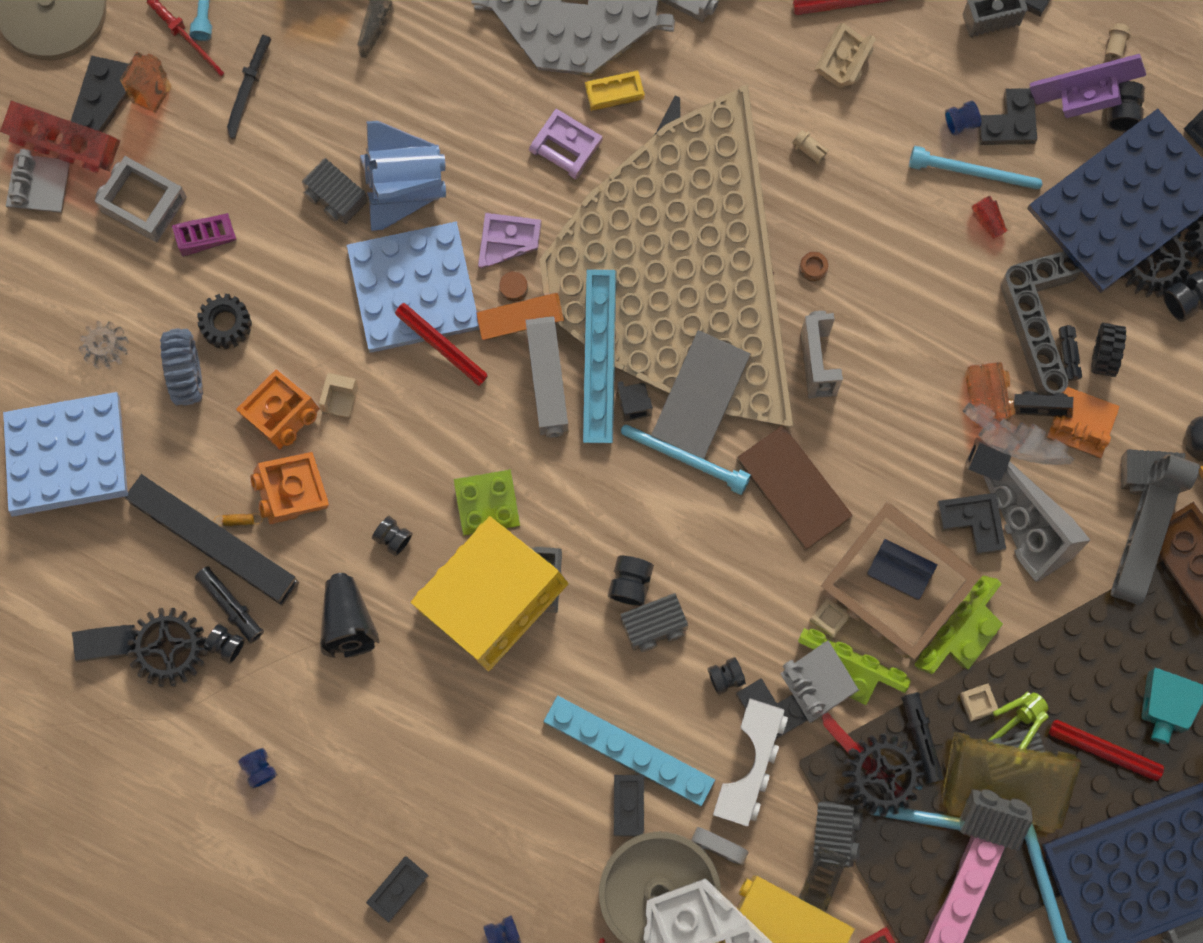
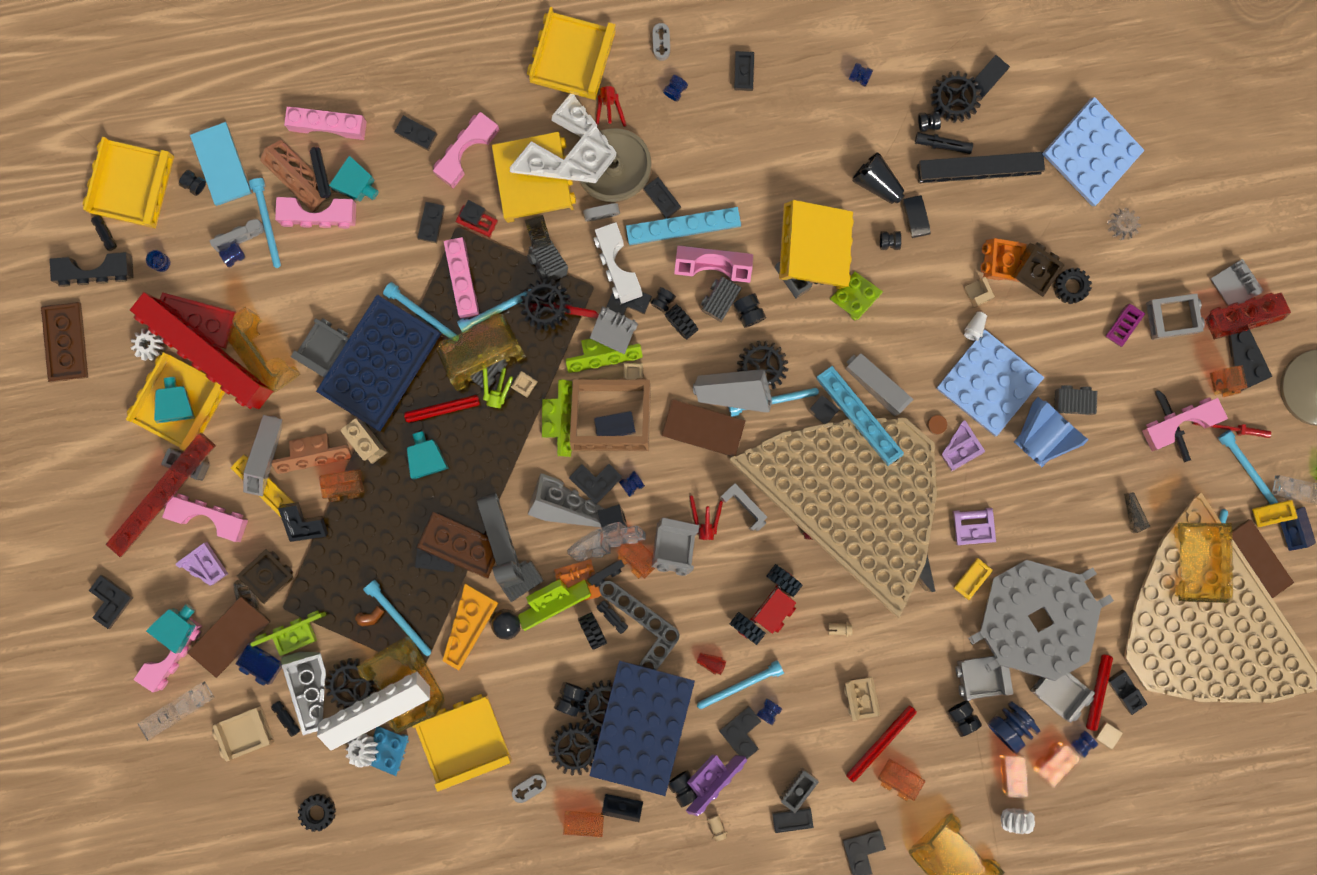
camera: 140 degrees right, 10 degrees up
(181, 367) = (1073, 240): sand blue gear -> none
(238, 519) = (979, 187): light orange piece -> none
(248, 367) = (1038, 268): none -> dark brown plate
(269, 83) = (1162, 434): none -> bright pink arch
(289, 487) = (963, 224): orange plate -> none
(336, 541) = (916, 216): none -> black slope
(376, 359) = (976, 327): none -> white cone
(441, 344) = (949, 360): red axle -> none
(513, 317) = (919, 407): orange tile -> none
(604, 648) = (734, 264): none -> bright pink arch
(678, 498) = (754, 362): none -> black gear
(700, 394) = (791, 438): flat silver tile -> none
(726, 496) = (735, 389): none -> light grey slope
(726, 628) = (681, 322): none -> black tyre
(814, 266) = (786, 560): dark orange tile -> none
(877, 218) = (772, 610): none -> brick
(881, 367) = (706, 531): none -> red plant
(922, 737) = (521, 329): black pin -> none
(933, 485) = (631, 484): none -> clear blue wheel
(939, 371) = (674, 546): none -> light grey panel
(996, 819) = (472, 321): dark grey brick -> none
(1132, 417) = (551, 601): none -> lime bracket

